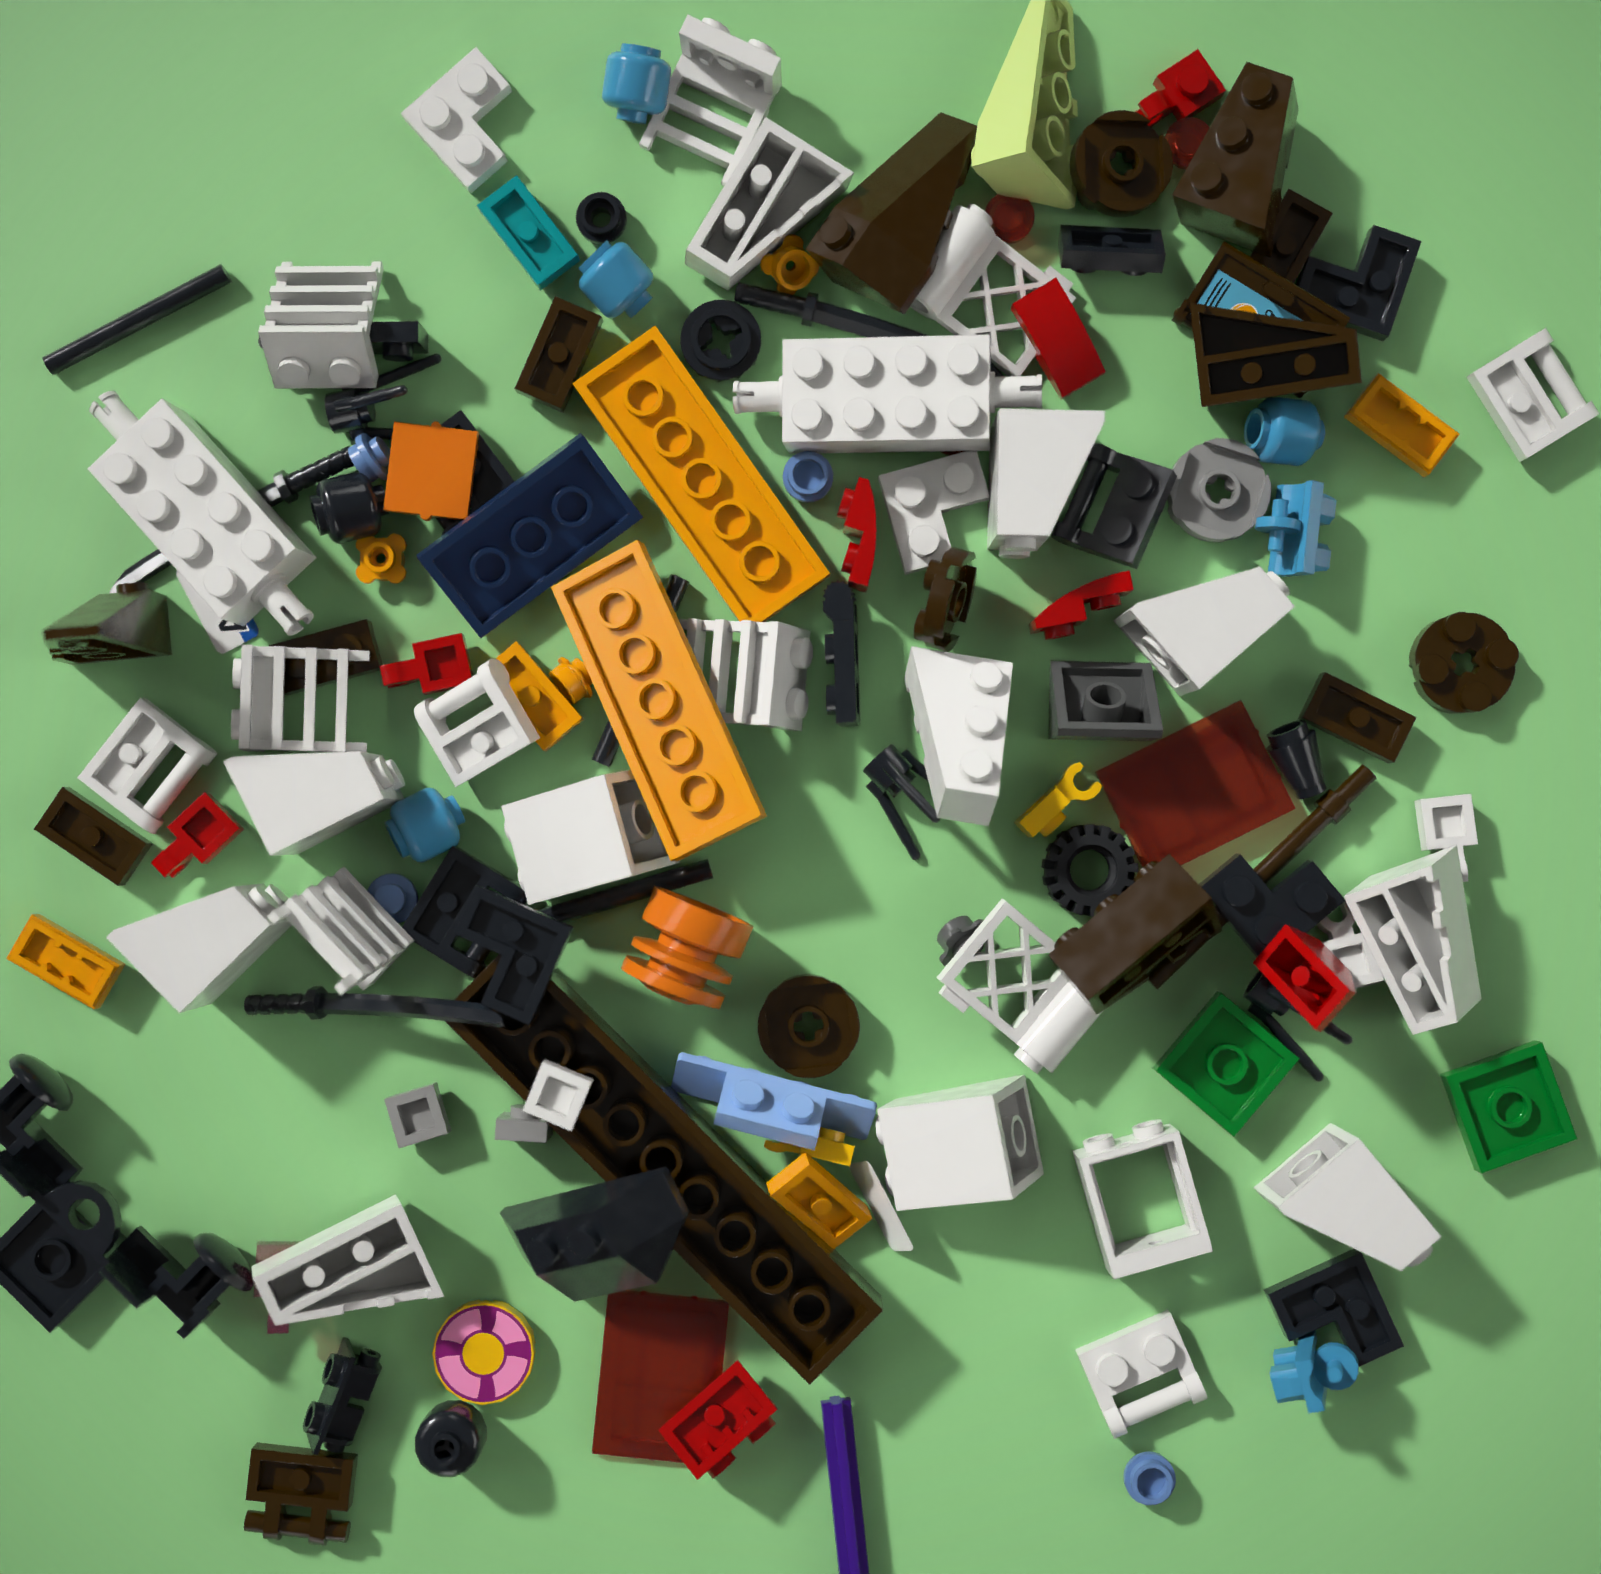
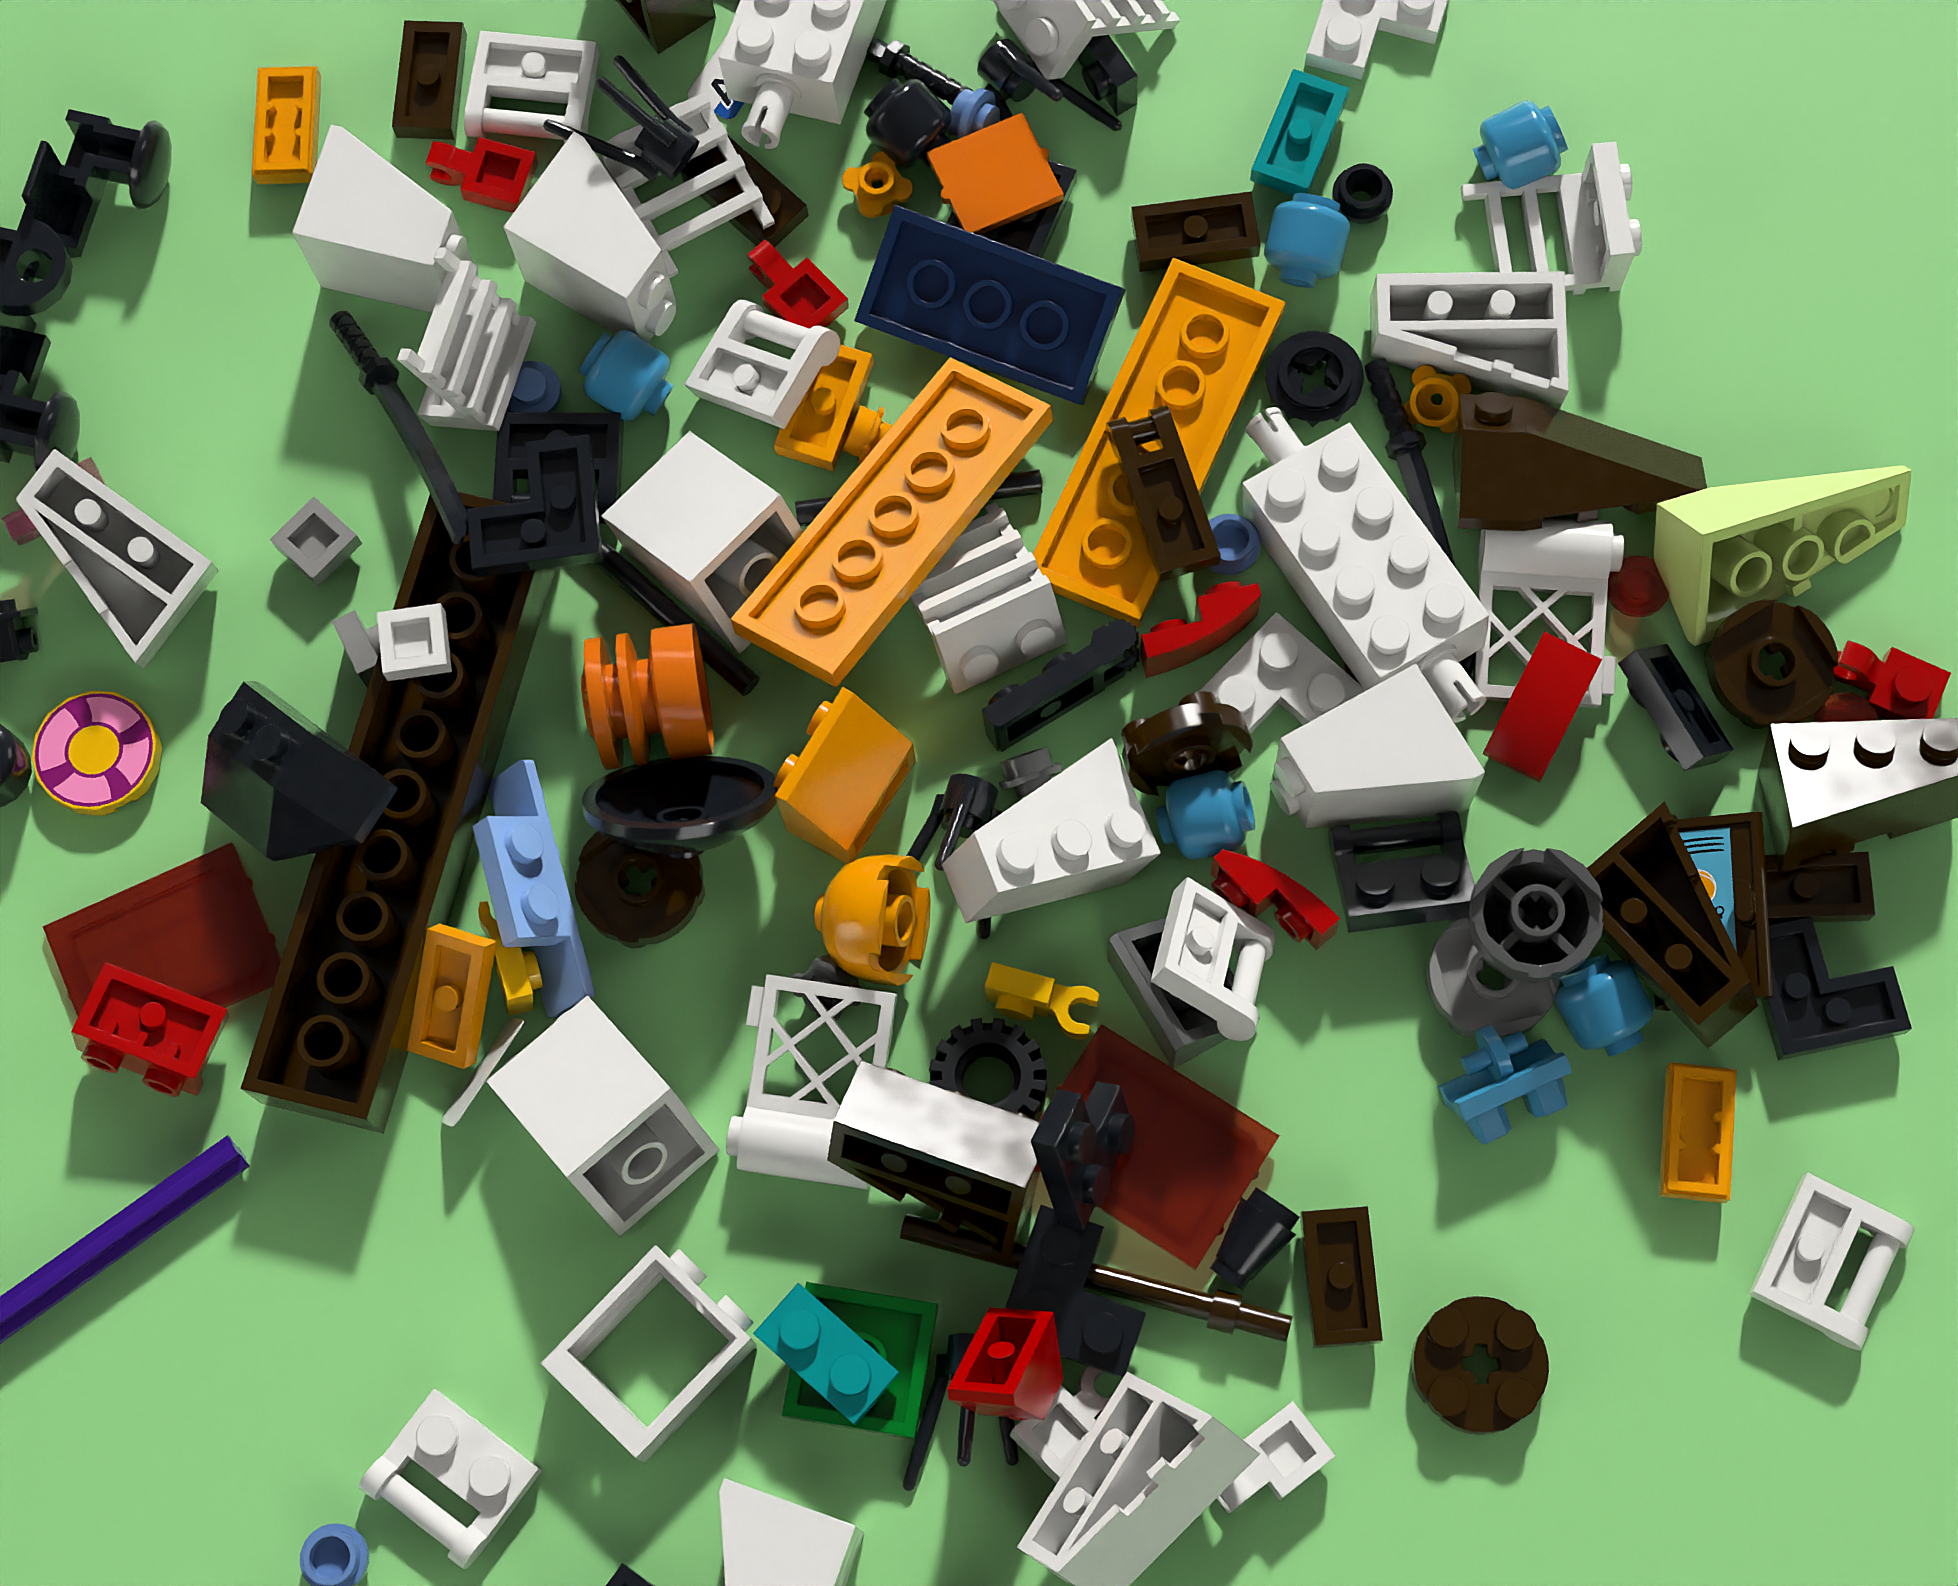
camera: 60 degrees right, 15 degrees down
(270, 700) = (663, 140): none -> black plant
(753, 500) = (1164, 494): none -> dark brown plate
(784, 971) = (680, 803): none -> black dish
(828, 846) = (843, 777): none -> light orange slope
(892, 715) = (1028, 771): none -> dark grey plate
(936, 883) = (875, 918): none -> light orange cylinder
(996, 613) = (1206, 814): none -> dark azure head
(1098, 680) = (1197, 955): none -> white plate
(1189, 842) = (1080, 1147): none -> black plate
(1205, 626) = (1335, 1034): white slope -> none
(1215, 1085) = (826, 1354): none -> teal plate
(1218, 440) = (1535, 914): none -> dark grey cylinder

